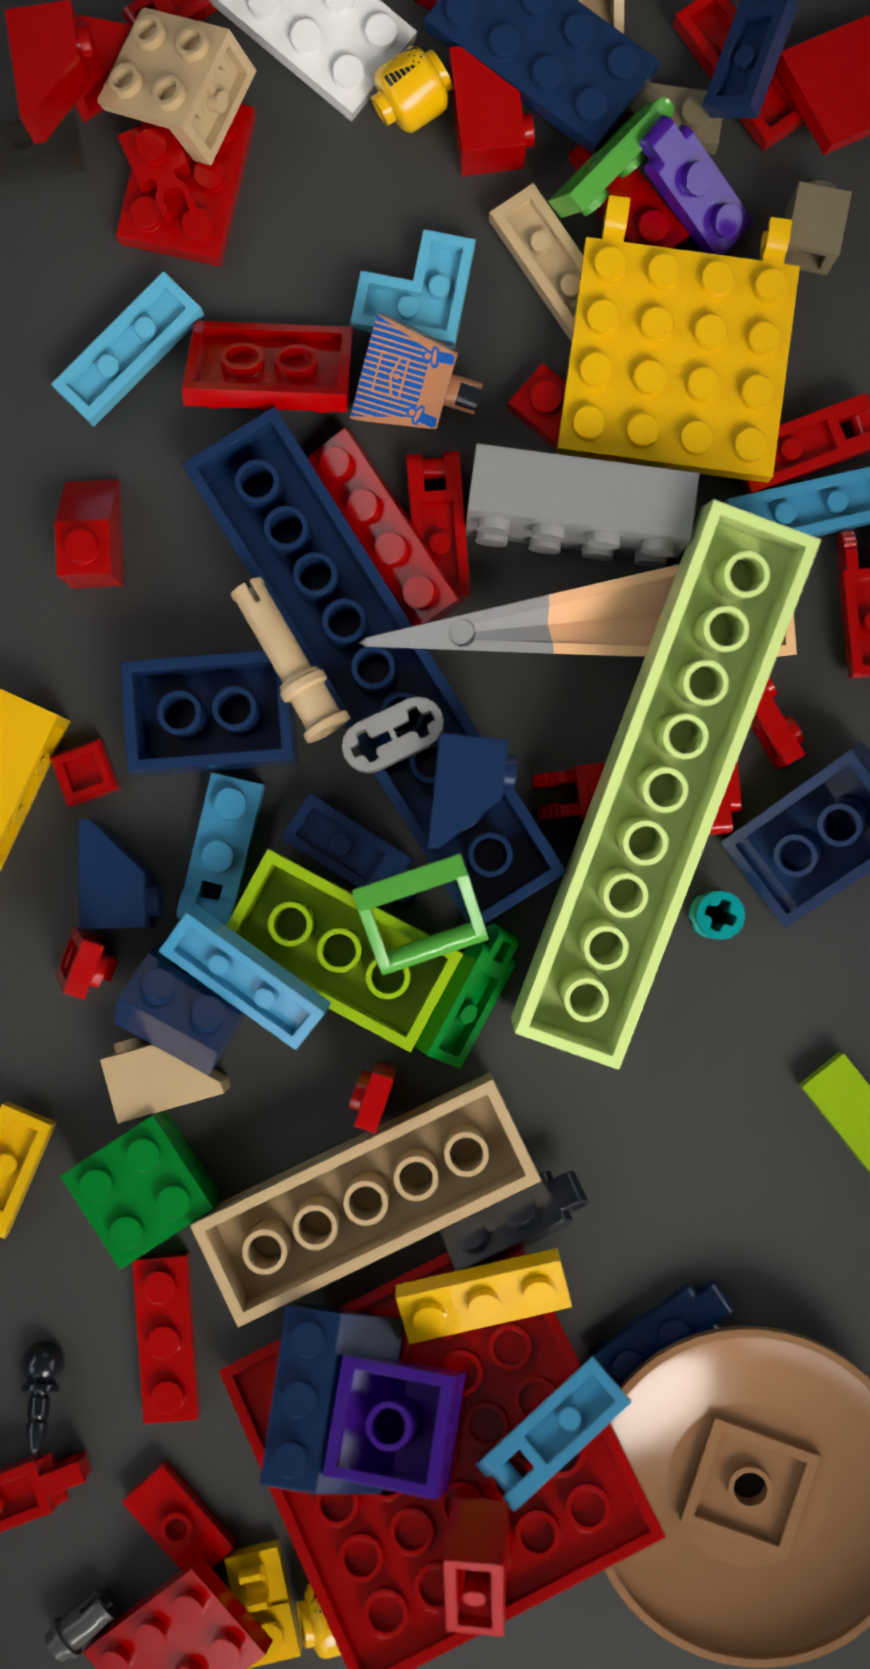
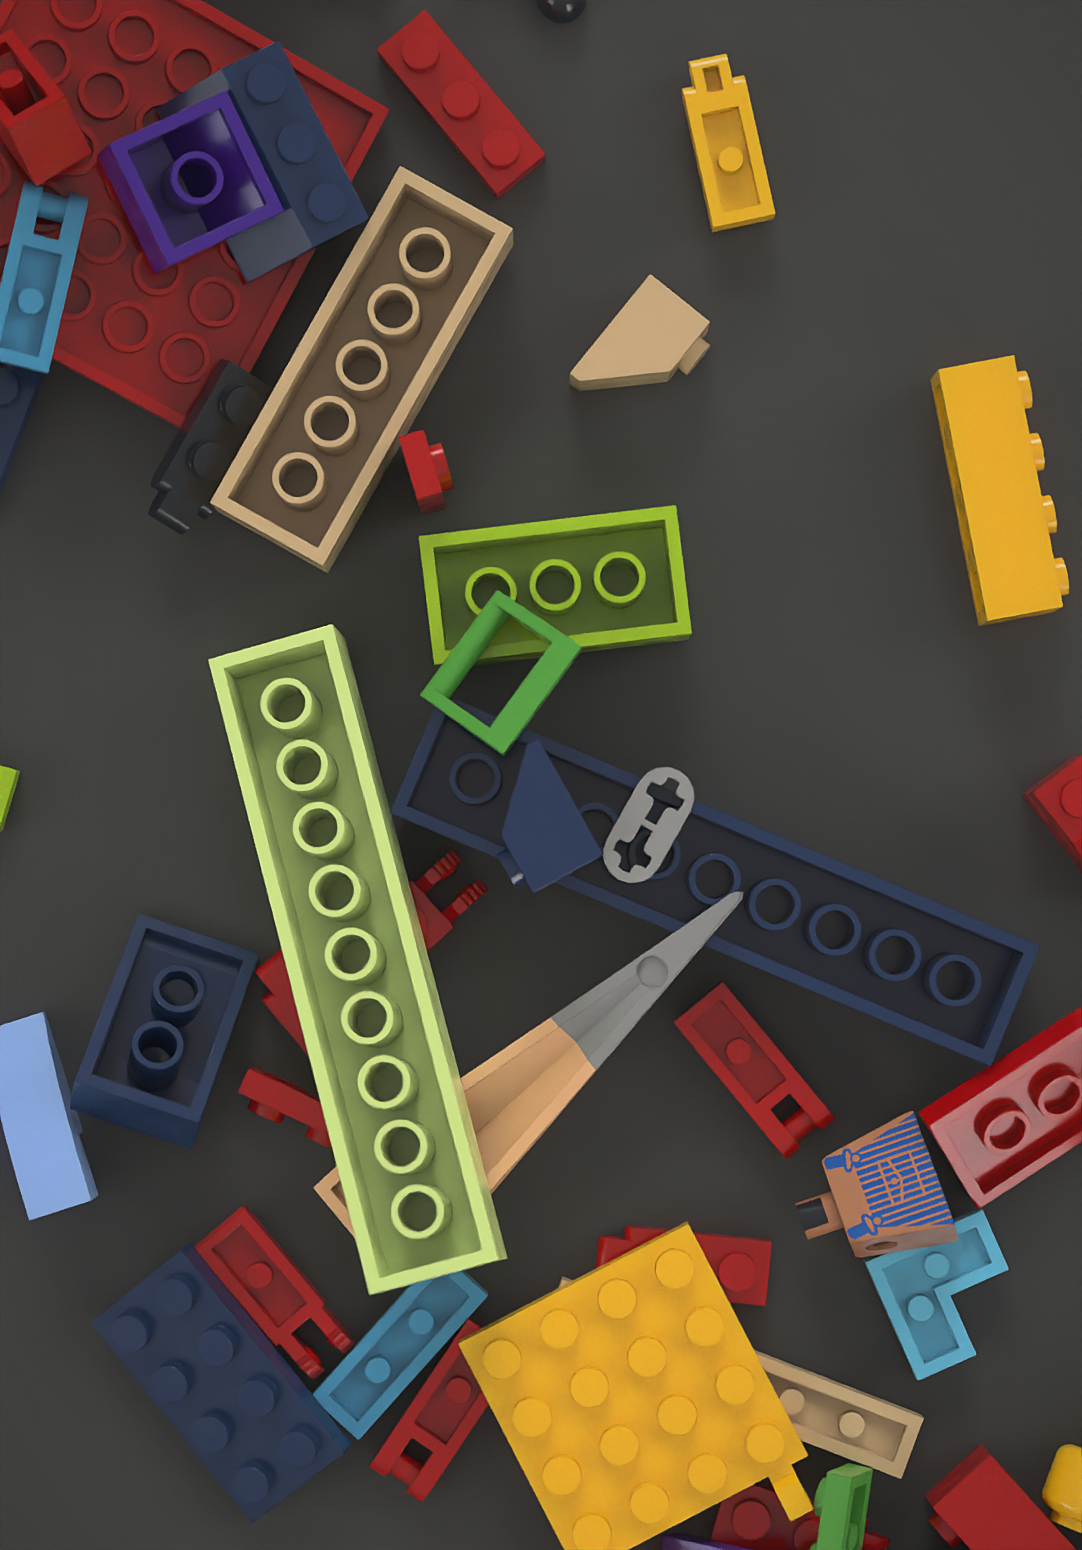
camera: 145 degrees right, 0 degrees up
(84, 964) = (792, 401): red plate -> none
(85, 773) = (926, 585): red tile -> none
(113, 882) = (819, 498): dark blue slope -> none
(142, 1188) = (584, 229): green brick -> none
(177, 1012) = (665, 433): dark blue slope -> none
(206, 714) = (843, 726): dark blue brick -> none
(222, 845) = (740, 605): dark azure plate -> none
(245, 976) = (625, 496): dark azure plate -> none
(301, 682) = (770, 813): tan pin -> none
(345, 846) = (621, 691): dark blue hinge -> none
(384, 530) = (803, 1025): red plate -> none
(469, 997) = (398, 629): green hinge -> none
(483, 1296) = (188, 356): yellow plate -> none
(580, 505) = (627, 1181): light grey brick -> none
(730, 906) = (200, 865): teal bush -> none

